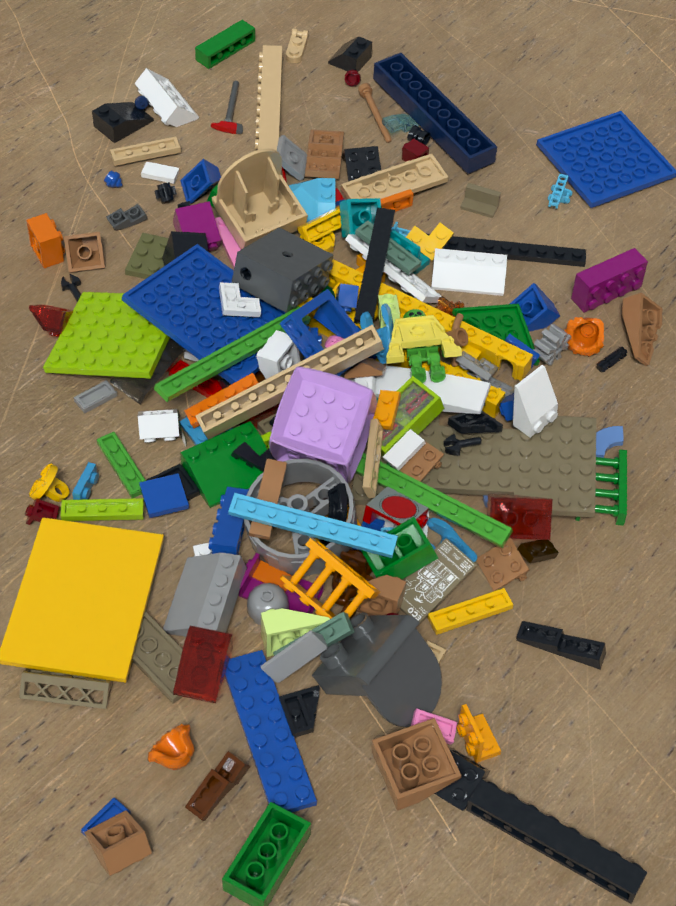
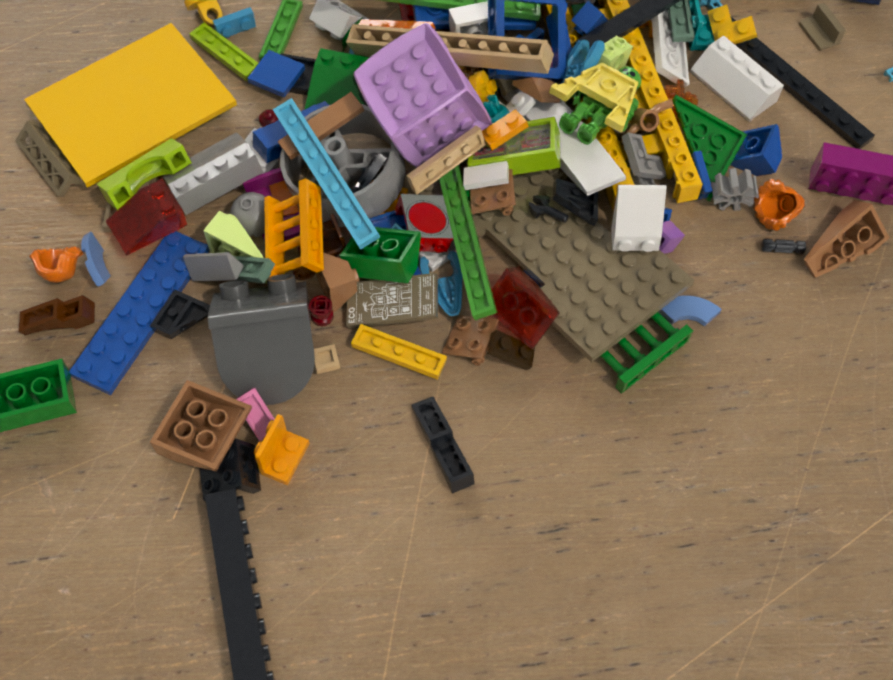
camera: 45 degrees right, 10 degrees up
(39, 510) = (182, 21): dark red bracket -> none
(168, 612) = (125, 183): none -> lime arch
(195, 532) = (267, 117): none -> dark red plate
(197, 724) = (95, 262): none -> medium blue tile

